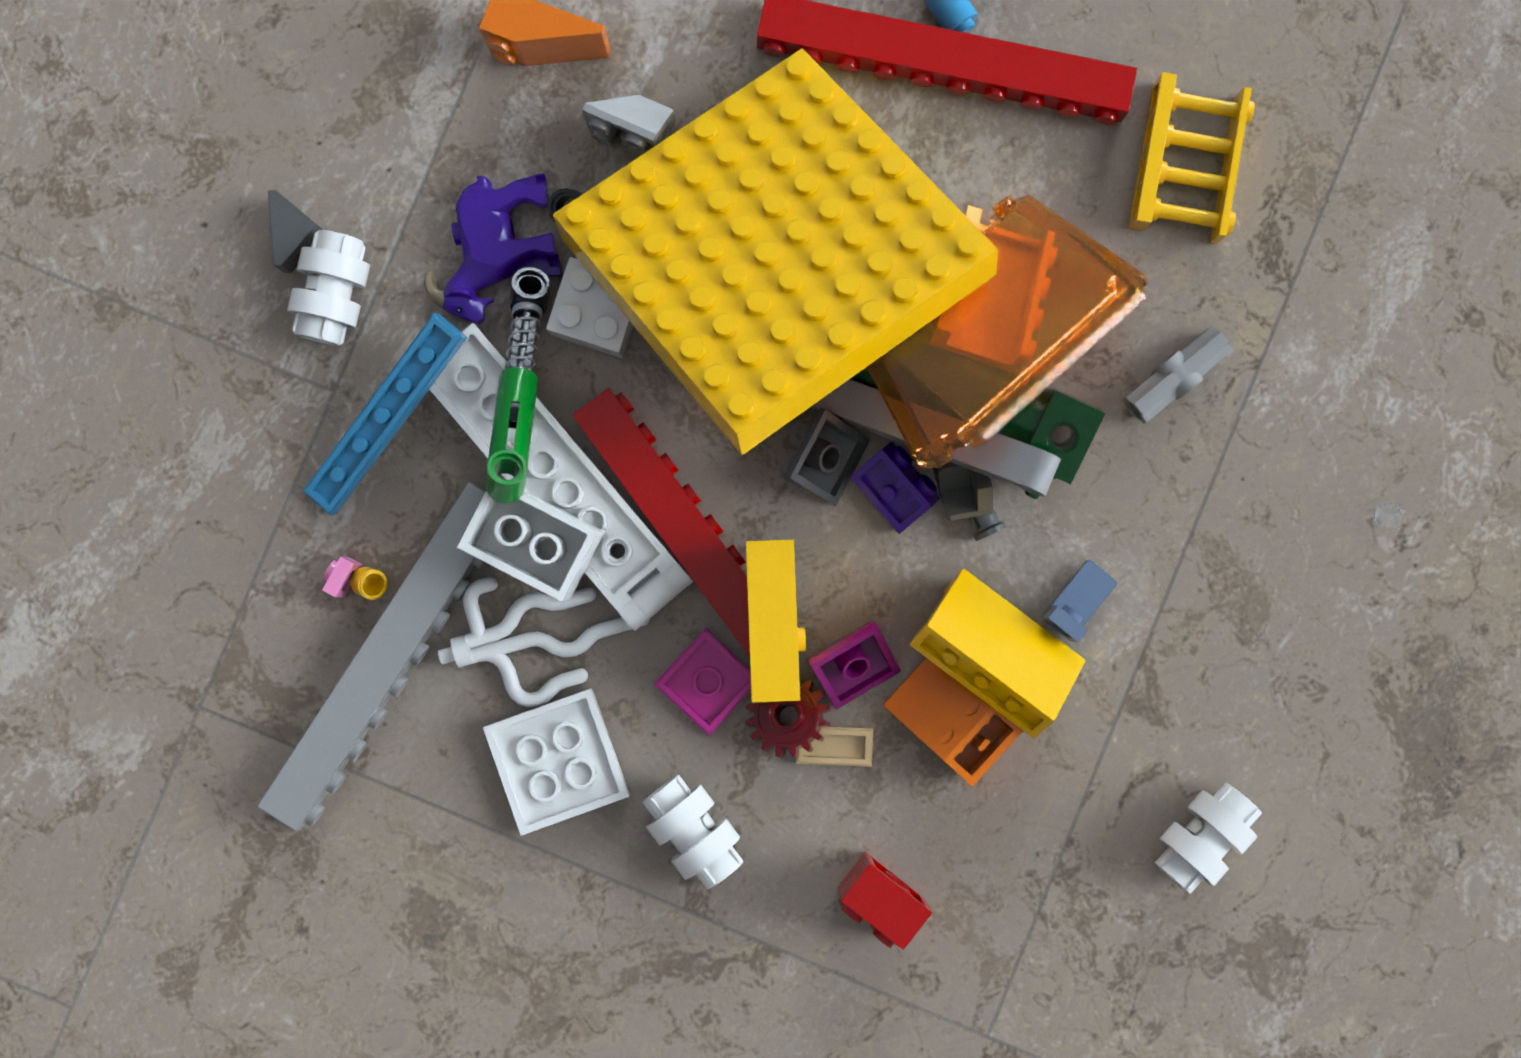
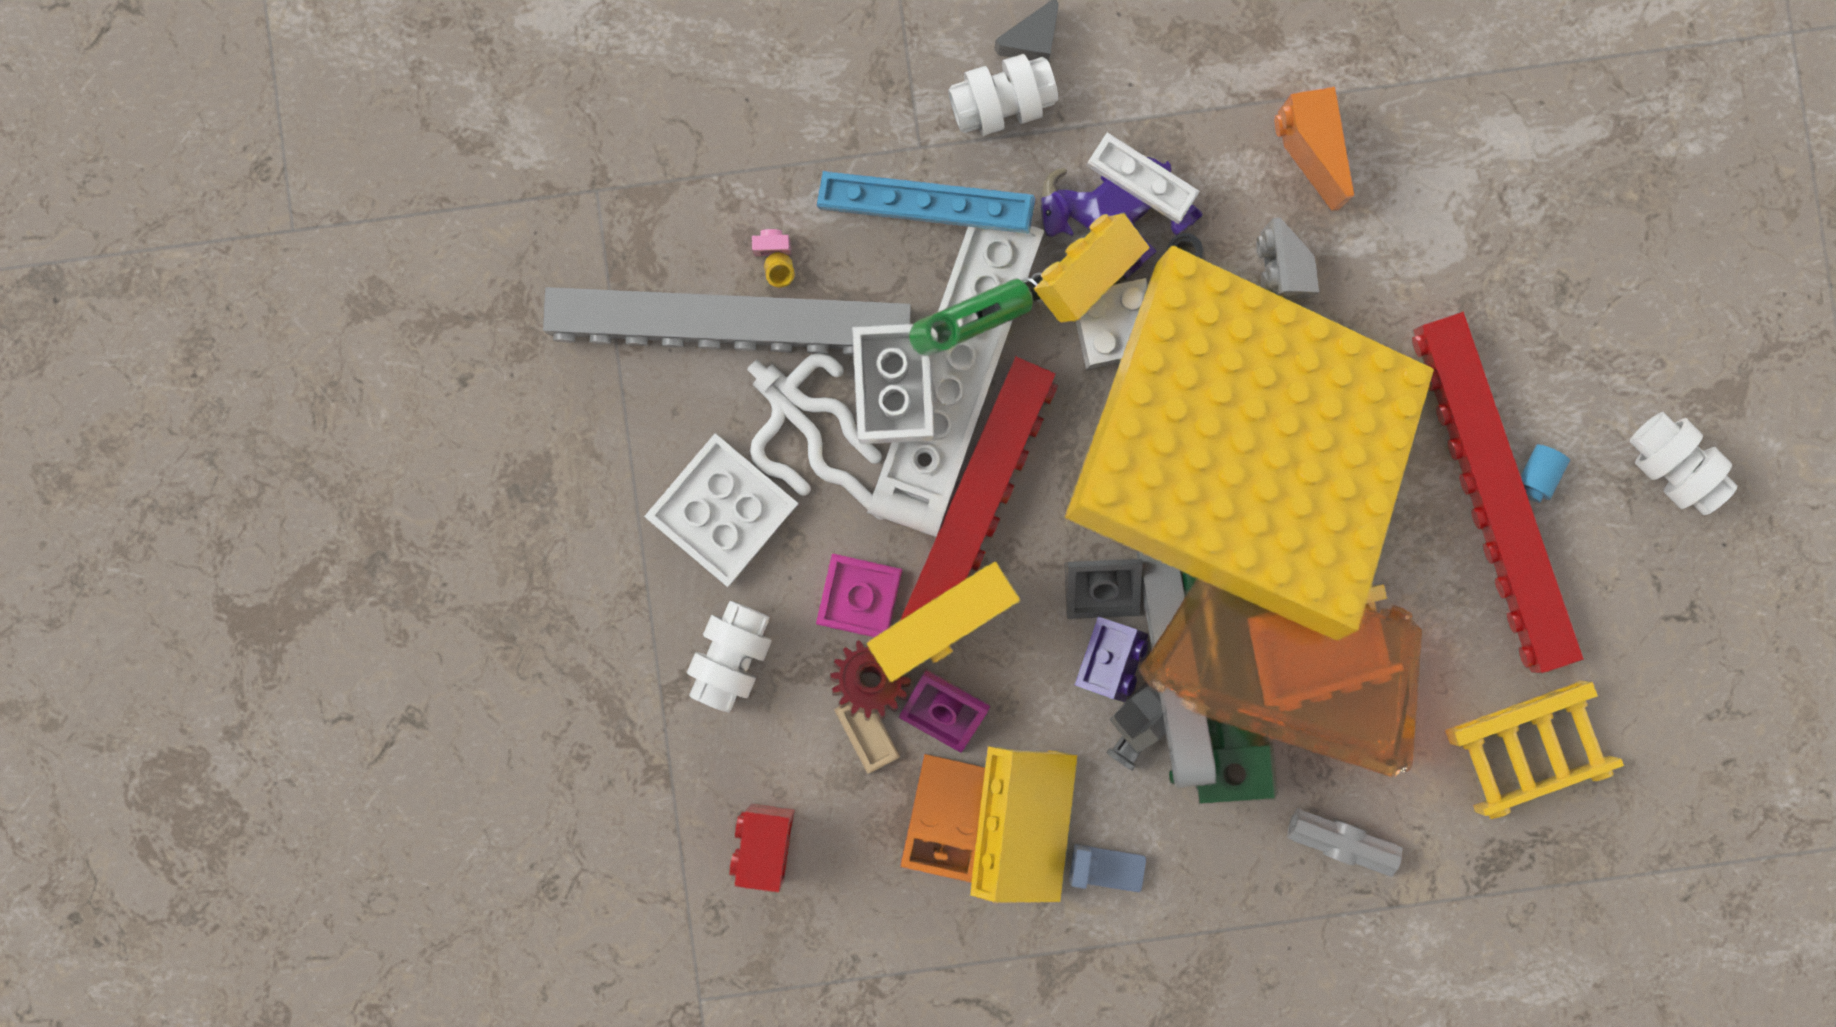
camera: 65 degrees right, 0 degrees up
(477, 206) = (1142, 178): none -> white tile
(529, 299) = (1091, 267): none -> yellow brick

